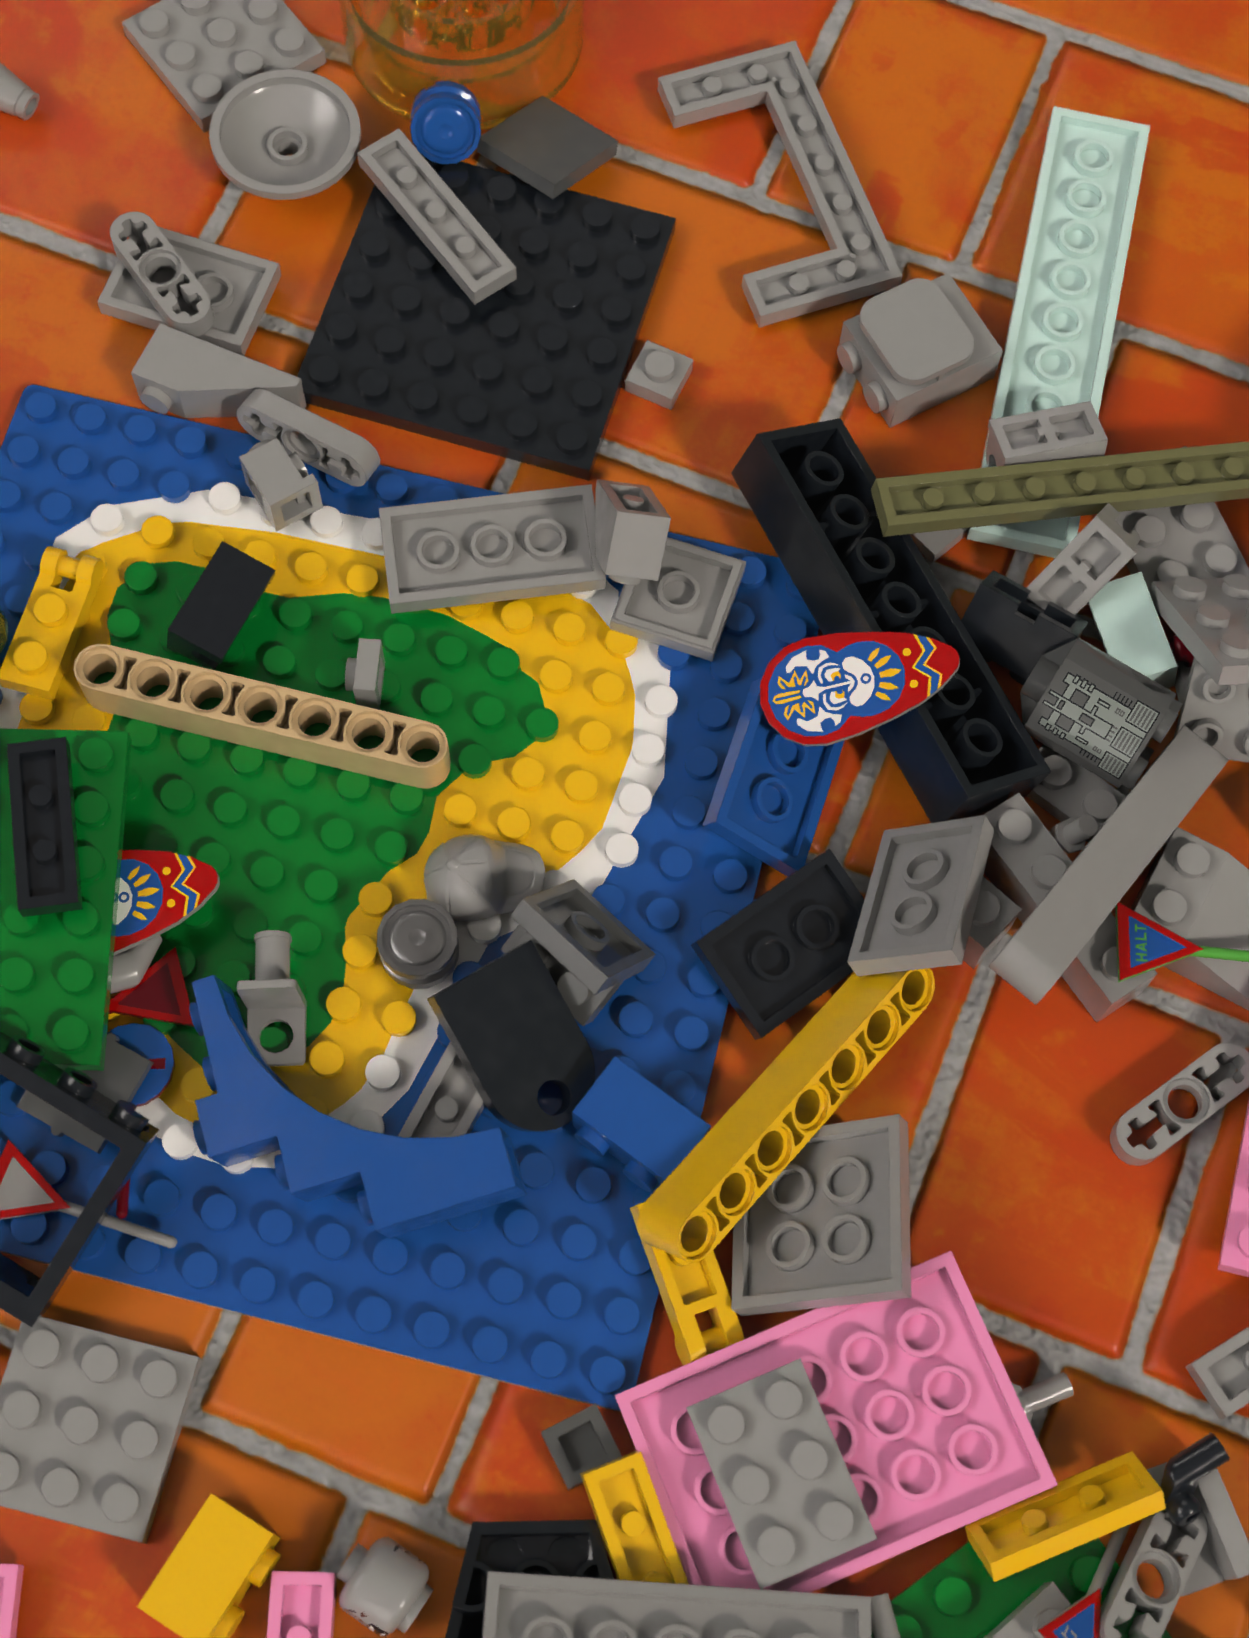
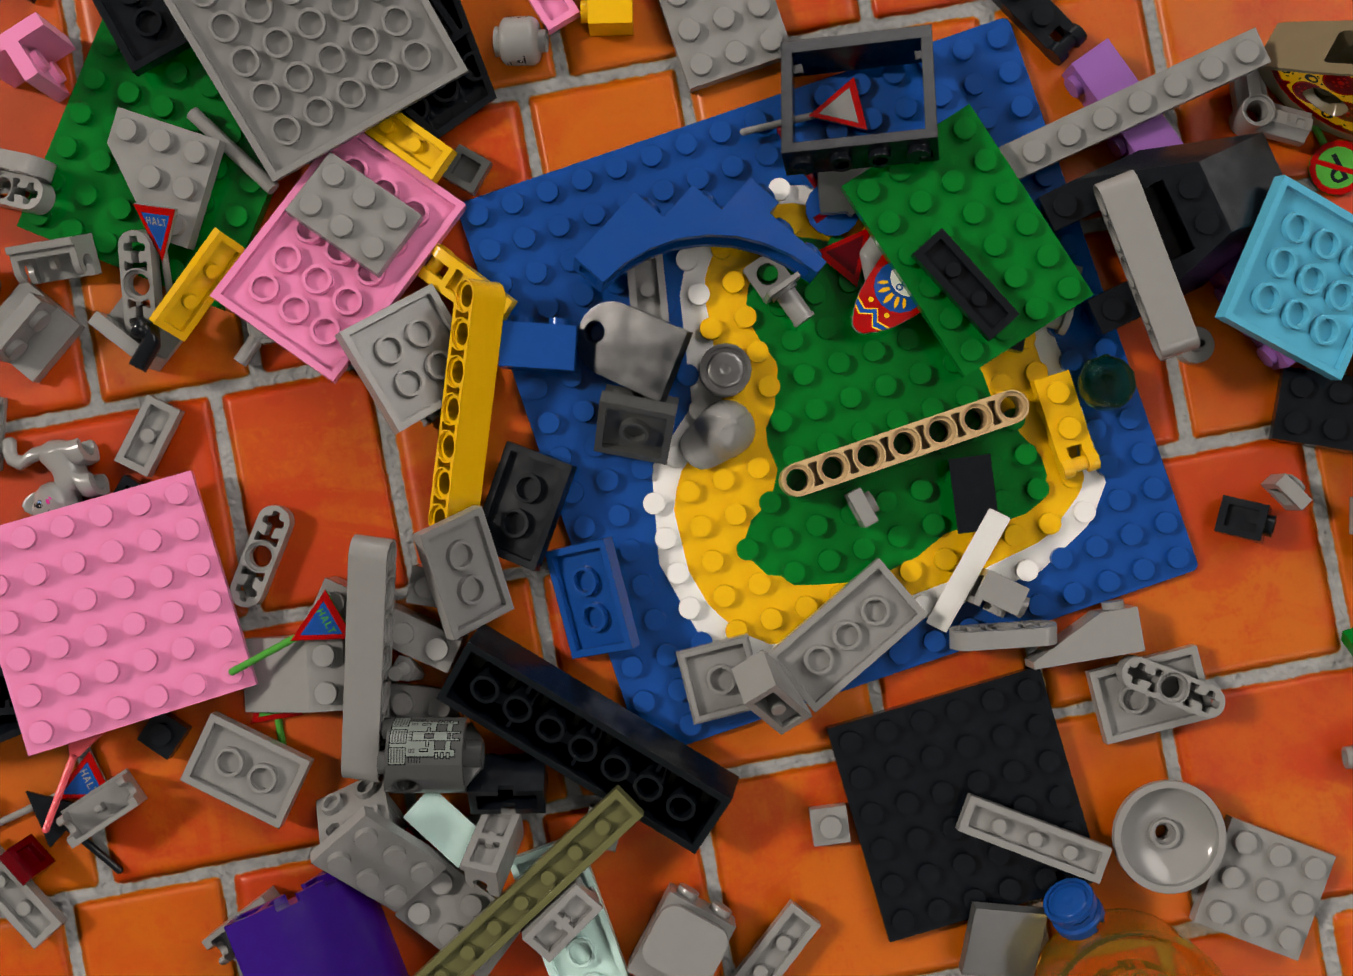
camera: 150 degrees right, 20 degrees up
(292, 527) = (968, 570): none -> white sticker
(851, 683) = (577, 671): shield -> none

